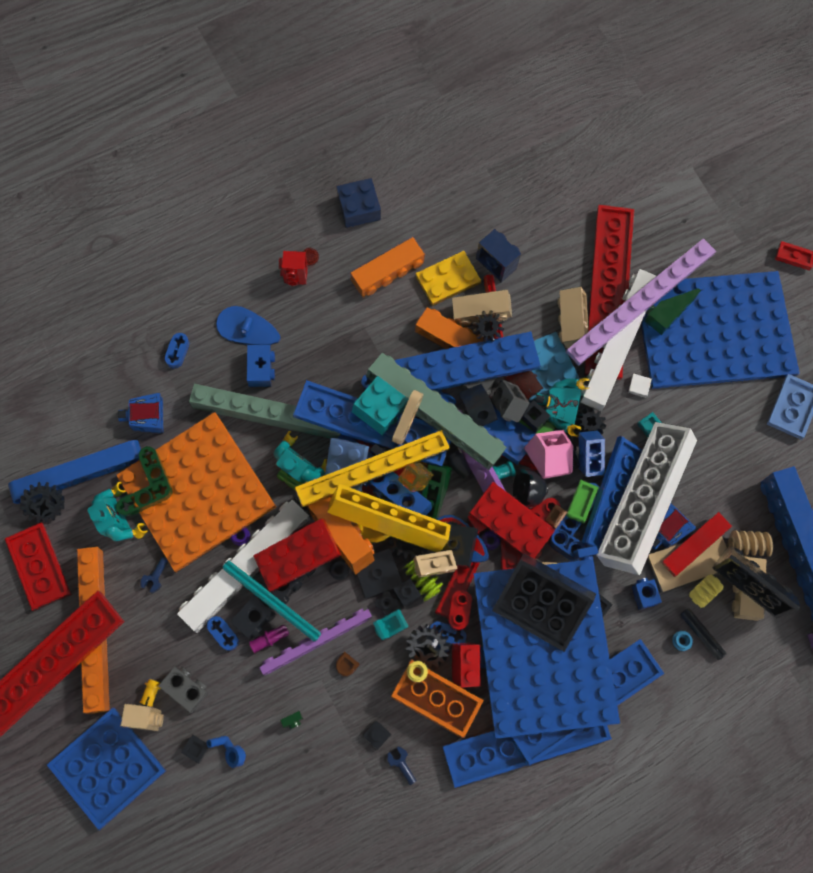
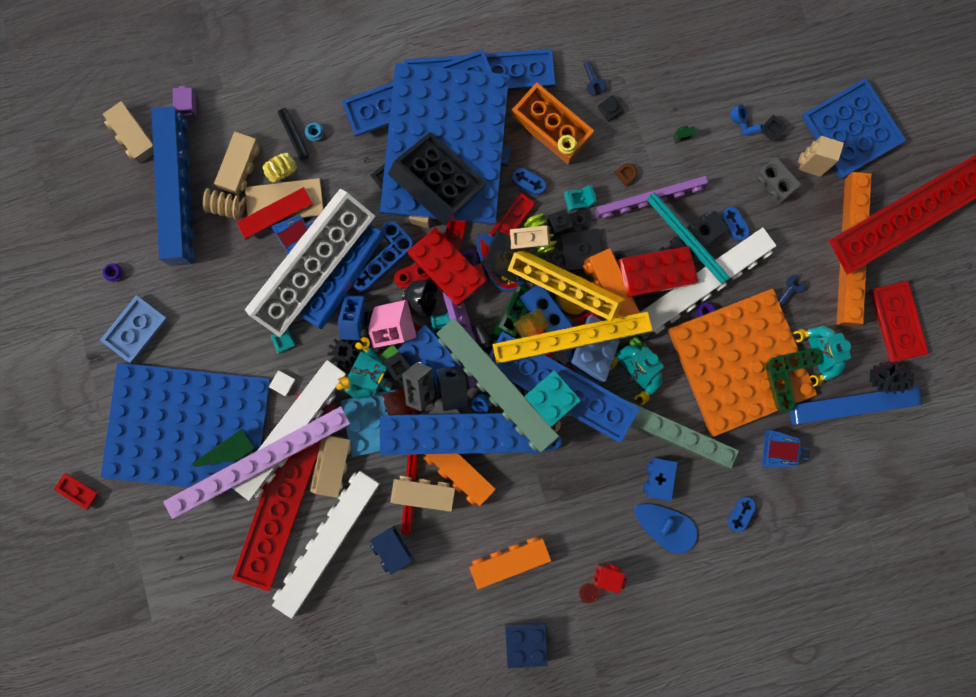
camera: 165 degrees left, 10 degrees up
(150, 691) = (805, 188): yellow pin -> none
(269, 638) = (694, 209): magenta axle -> none
(407, 417) = (528, 379): tan beam -> none
(436, 642) = (549, 171): black gear -> none
(448, 278) = (448, 540): yellow plate -> none
(460, 609) = (513, 197): red plate -> none
(466, 664) = (519, 147): red brick -> none
(481, 326) = (421, 474): black gear -> none
(556, 516) = (401, 265): medium nougat slope -> none
(557, 255) = (326, 544): none -> white brick
(582, 501) = (374, 272): bright green tile -> none
(585, 553) = (384, 220): blue plate -> none
(642, 601) = (332, 171): blue brick -> none
(756, 583) = (231, 158): black slope -> none

